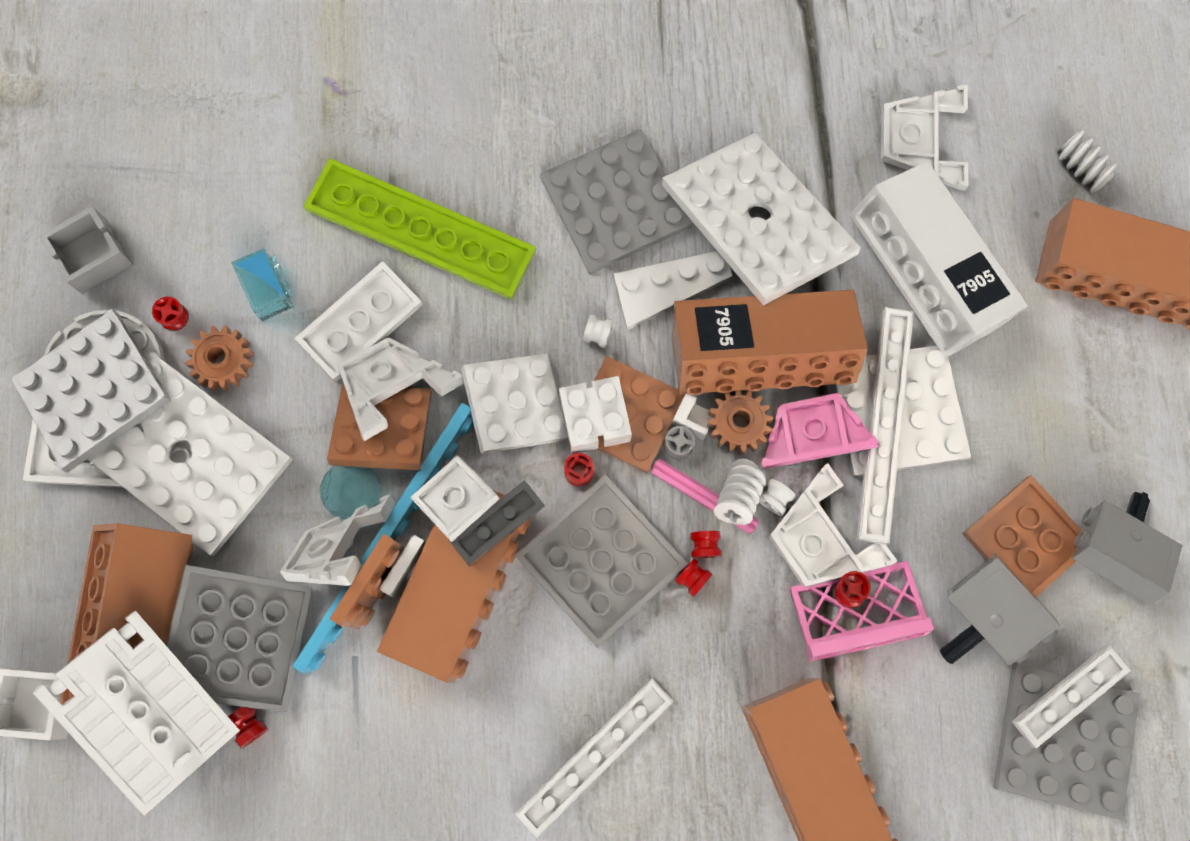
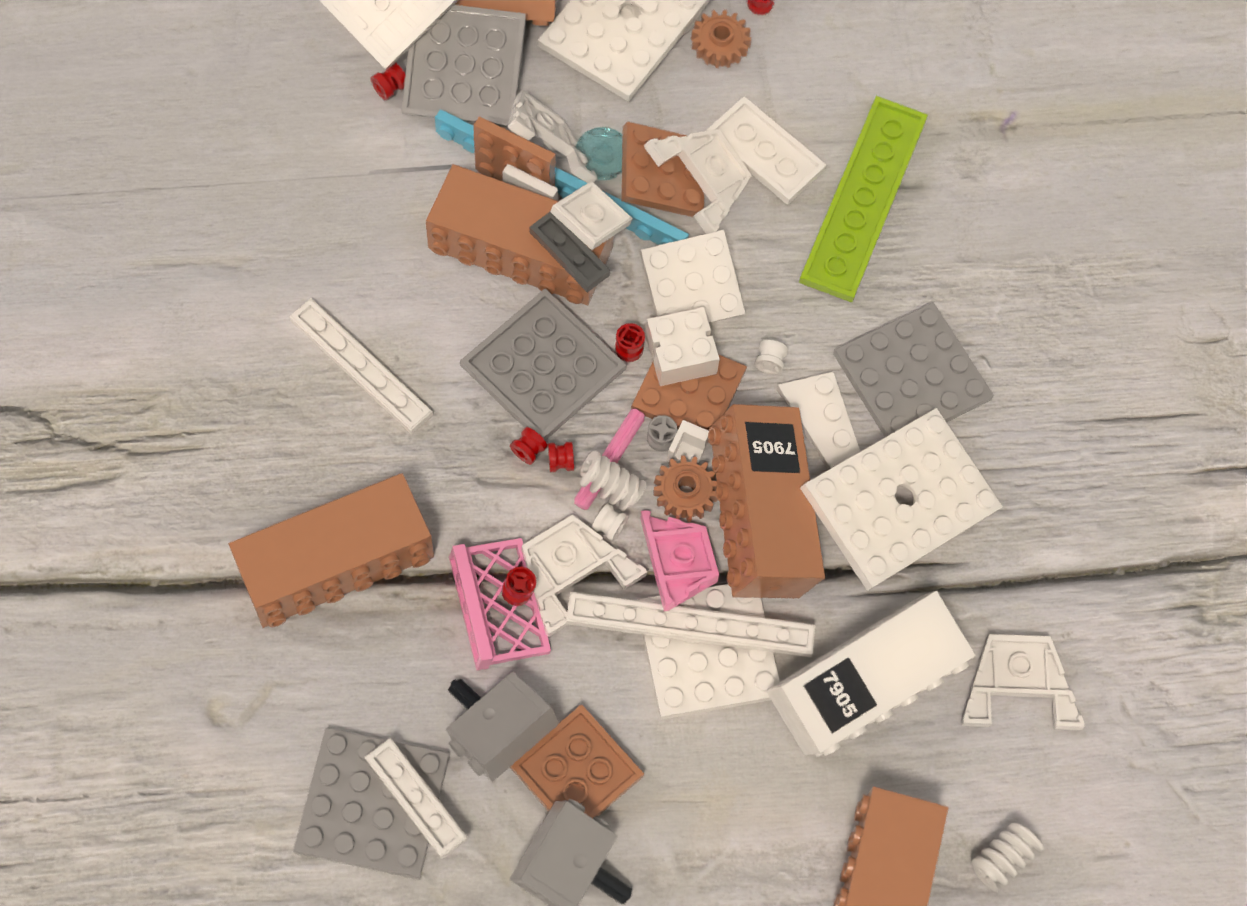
camera: 85 degrees right, 10 degrees down
(263, 285) = (795, 68): clear light blue brick -> none

